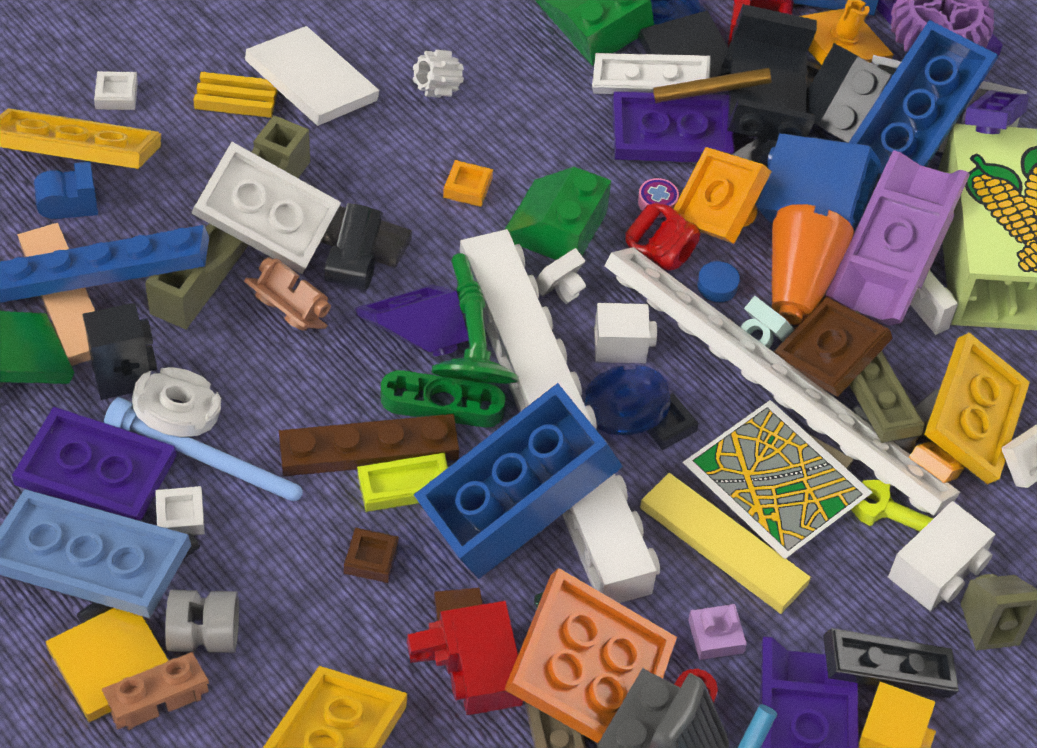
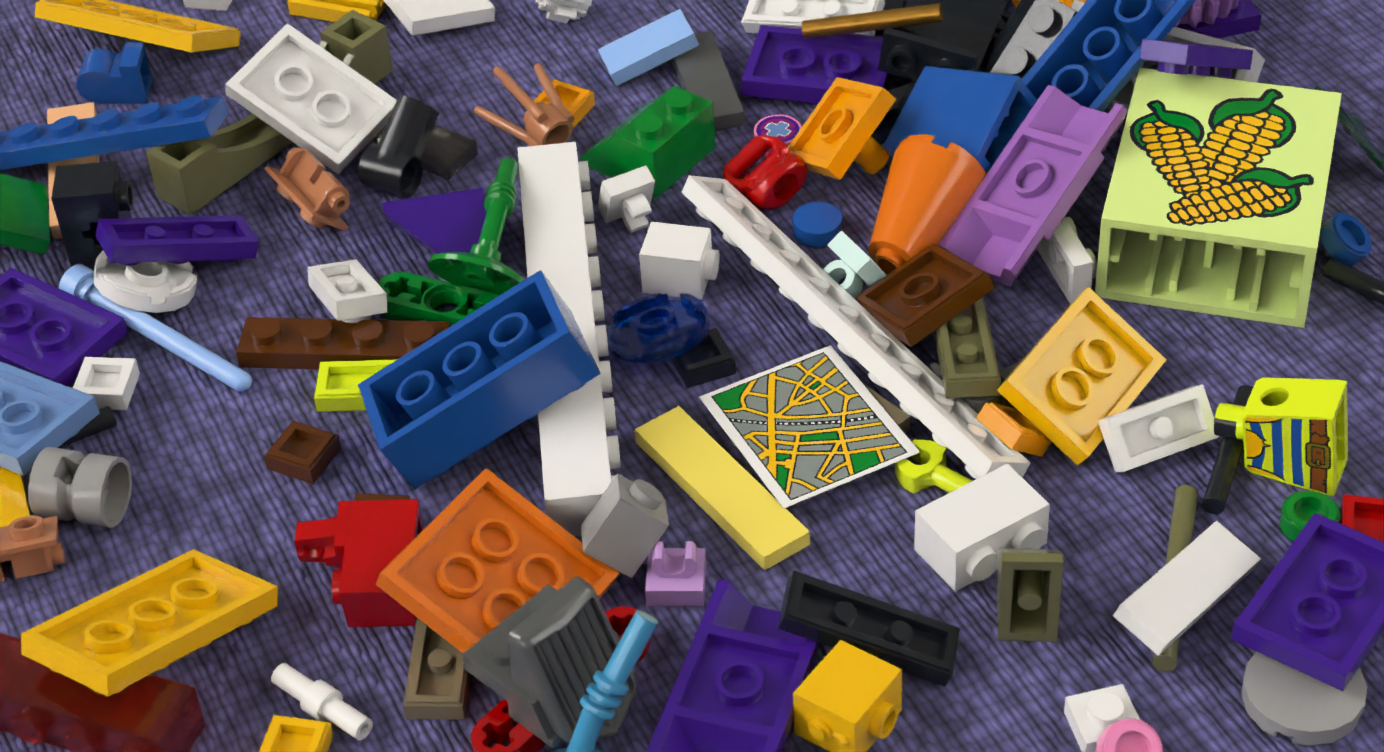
camera: 20 degrees right, 10 degrees down
(195, 363) = (176, 239): none -> dark purple plate
(359, 395) = (347, 290): none -> white plate
(467, 209) = (543, 121): none -> nougat plant
(526, 121) = (648, 47): none -> light blue tile
(578, 142) = (706, 75): none -> dark grey tile
(675, 598) = (625, 524): none -> light grey brick

